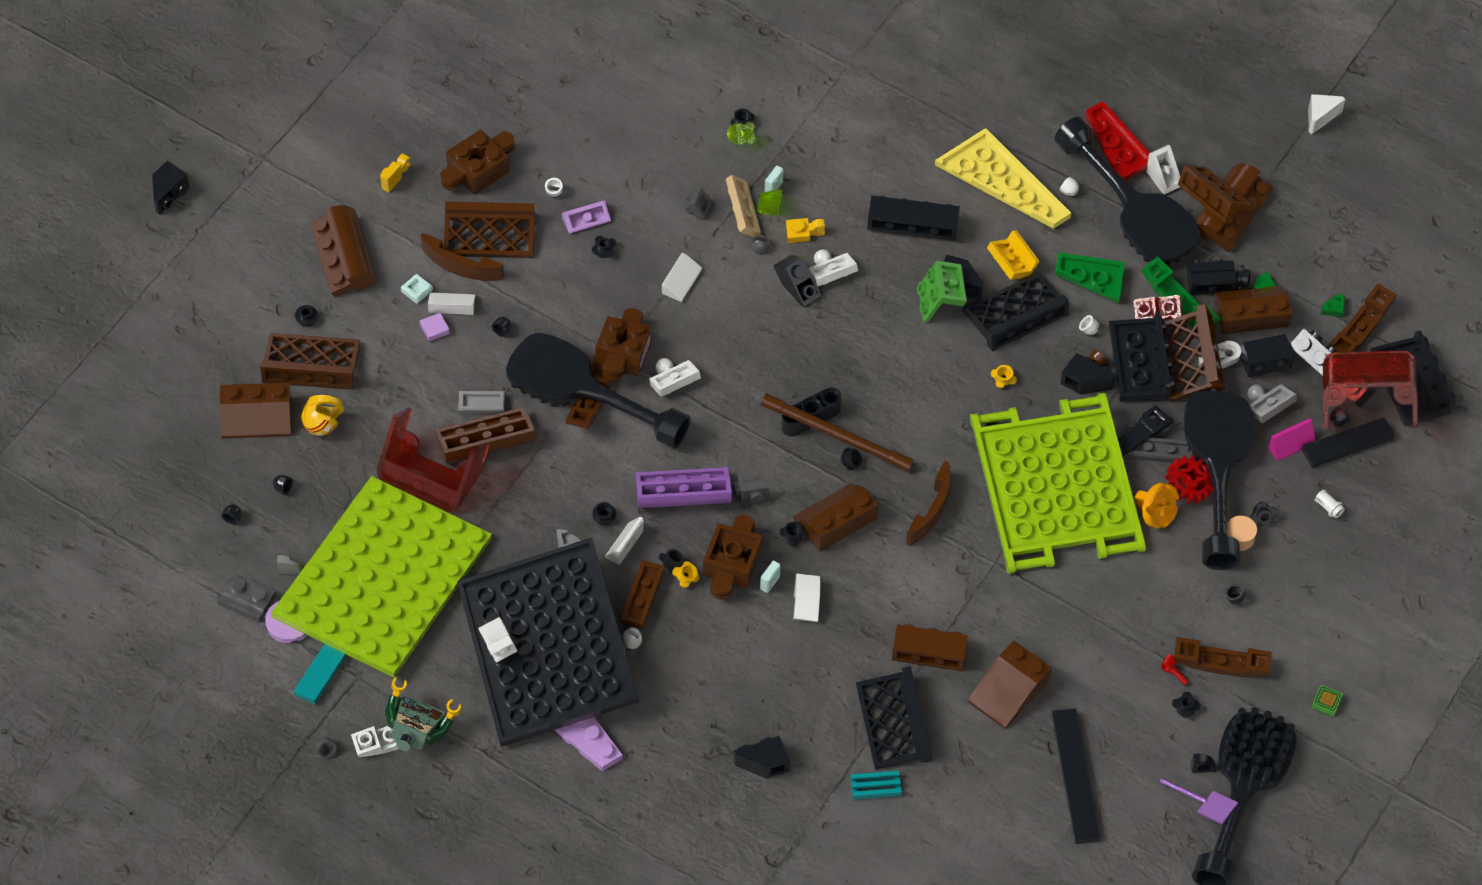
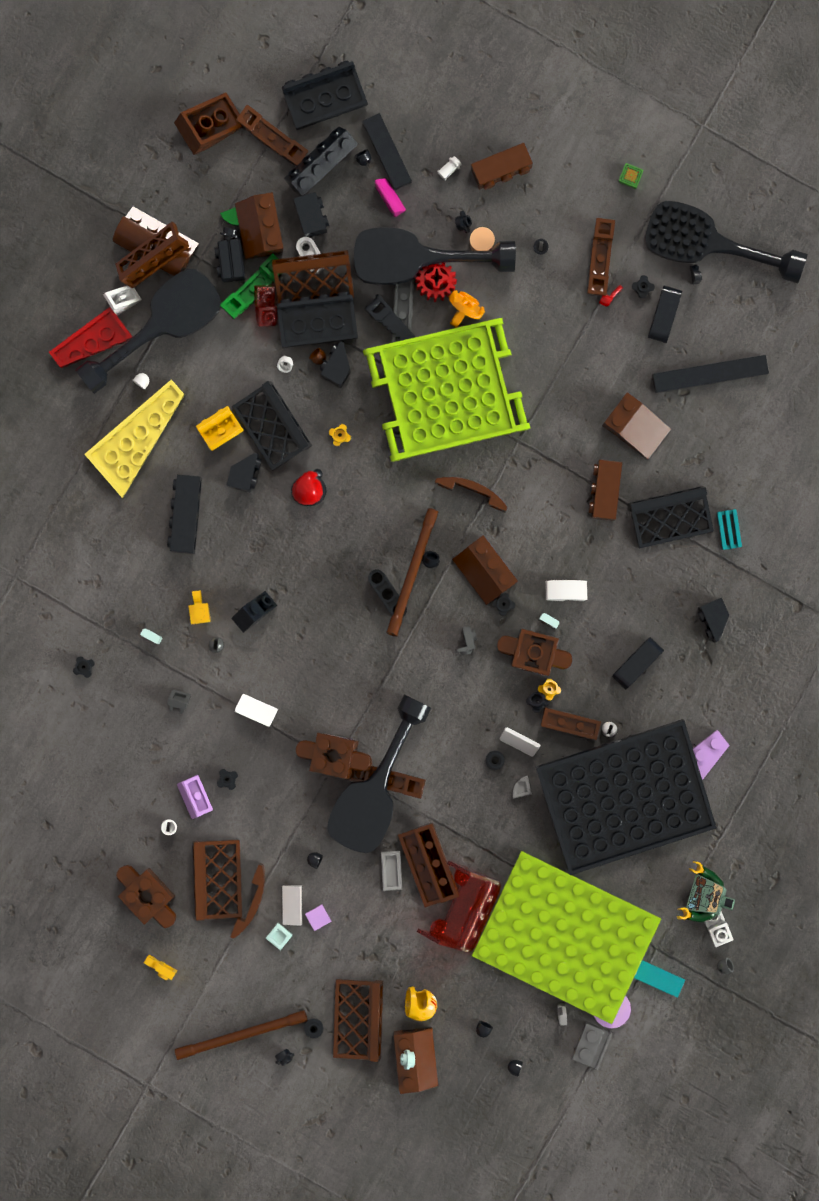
camera: 90 degrees left, 30 degrees up
(168, 185) = (188, 1166): black slope -> none
(260, 386) = (407, 1059): none -> light aqua plate
(276, 283) = (284, 1057): none -> black plate
(318, 292) = (192, 1049): none -> reddish brown piece
(343, 250) = (246, 1003): reddish brown brick -> none
(497, 639) = (632, 837): white brick -> none
(671, 377) = (359, 710): white plate -> none
(683, 487) = (470, 696): medium lavender brick -> none
(712, 670) = (637, 663): none -> black beam
(741, 133) = (103, 667): clear neon green brick -> none
(743, 206) = (179, 661): tan plate -> none
(770, 202) = (171, 639): clear neon green slope -> none
(829, 268) = (240, 583): white plate -> none
(940, 340) = (309, 488): none -> red piece
(941, 285) = (263, 488): bright green bracket -> none
(1092, 273) = (232, 360): green wing -> none
(1151, 725) = (665, 314): none -> black beam
(1214, 807) = (737, 264): medium lavender piece -> none
(1269, 404) = (354, 214): light grey plate -> none
(1323, 109) = (47, 163): white slope -> none
(1333, 557) = (501, 166): none -> reddish brown brick
(1334, 306) = (250, 158): green tile -> none
(1369, 369) = (343, 128): clear red windscreen -> none
(1374, 261) = (208, 123): none -> reddish brown slope

